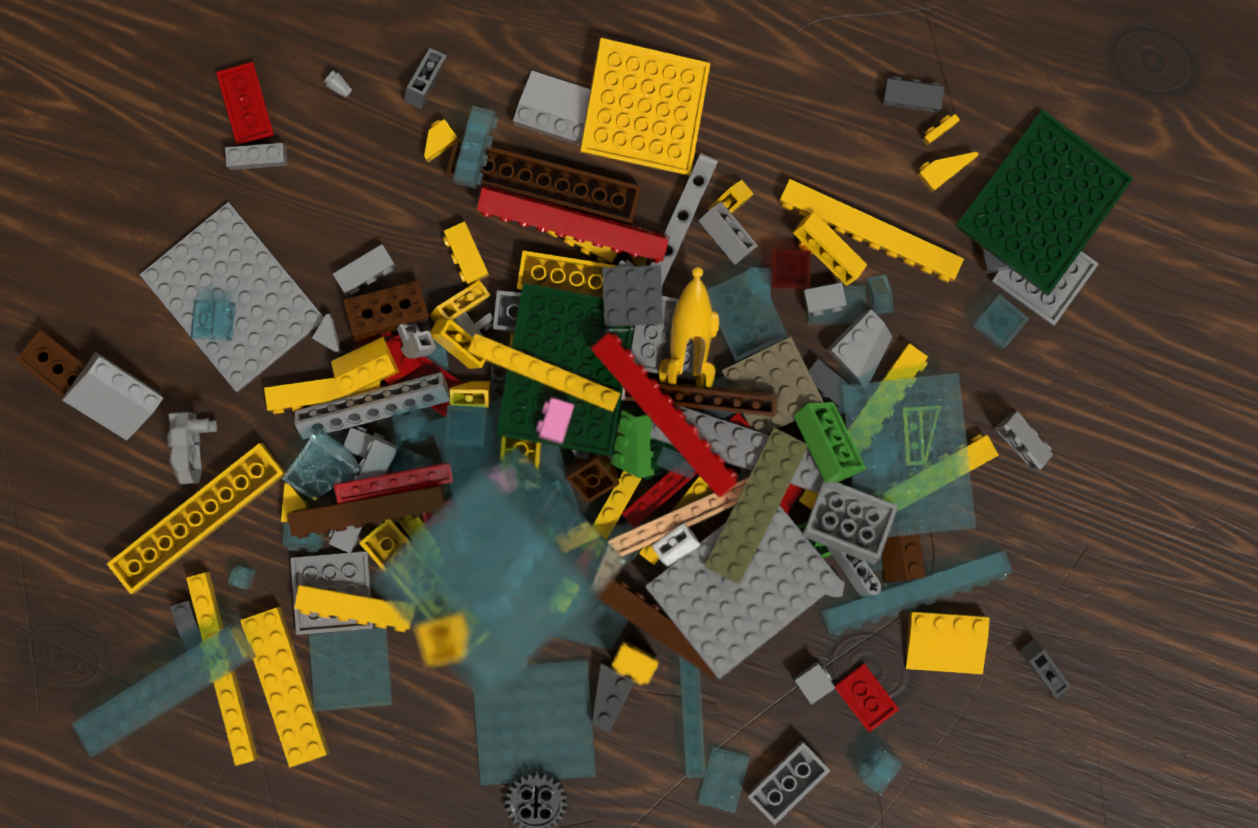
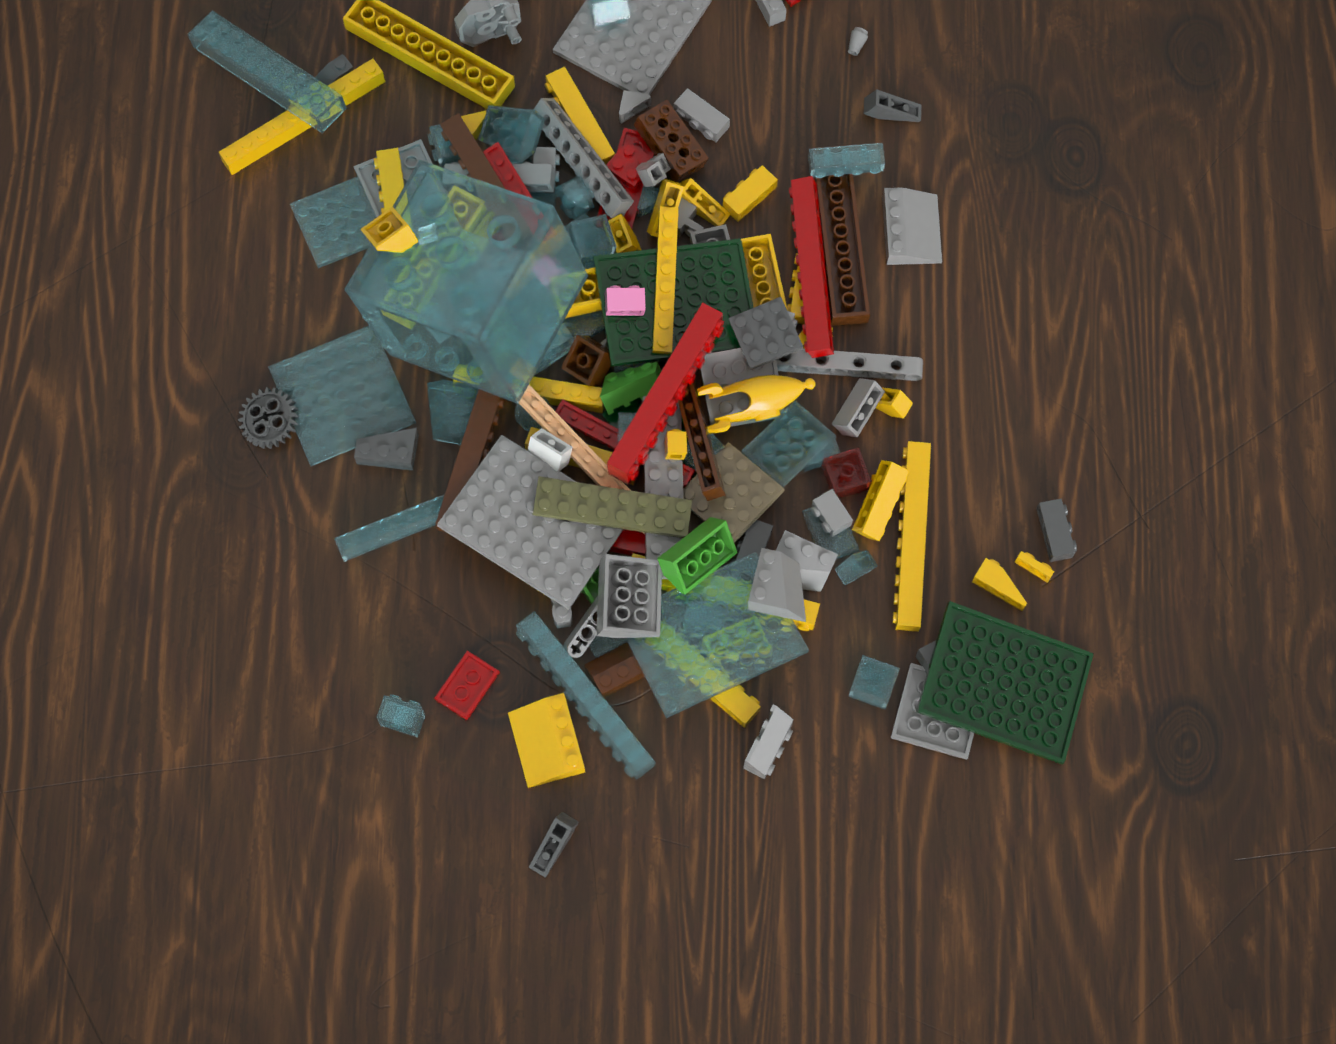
camera: 70 degrees right, 15 degrees down
(241, 577) = (389, 106): clear light blue brick -> none
(285, 687) = (303, 172): yellow brick -> none
(364, 367) = (612, 138): yellow slope -> none
(439, 139) = (840, 135): yellow slope -> none
(635, 662) = (427, 451): yellow brick -> none
(644, 107) = (943, 295): yellow plate -> none
(713, 423) = (675, 444): none -> yellow brick
(723, 779) = (344, 580): clear light blue plate -> none
(788, 782) = (361, 635): light grey brick -> none
(814, 682) = (464, 627): light grey head -> none
(889, 378) = (777, 586): none -> light grey wedge

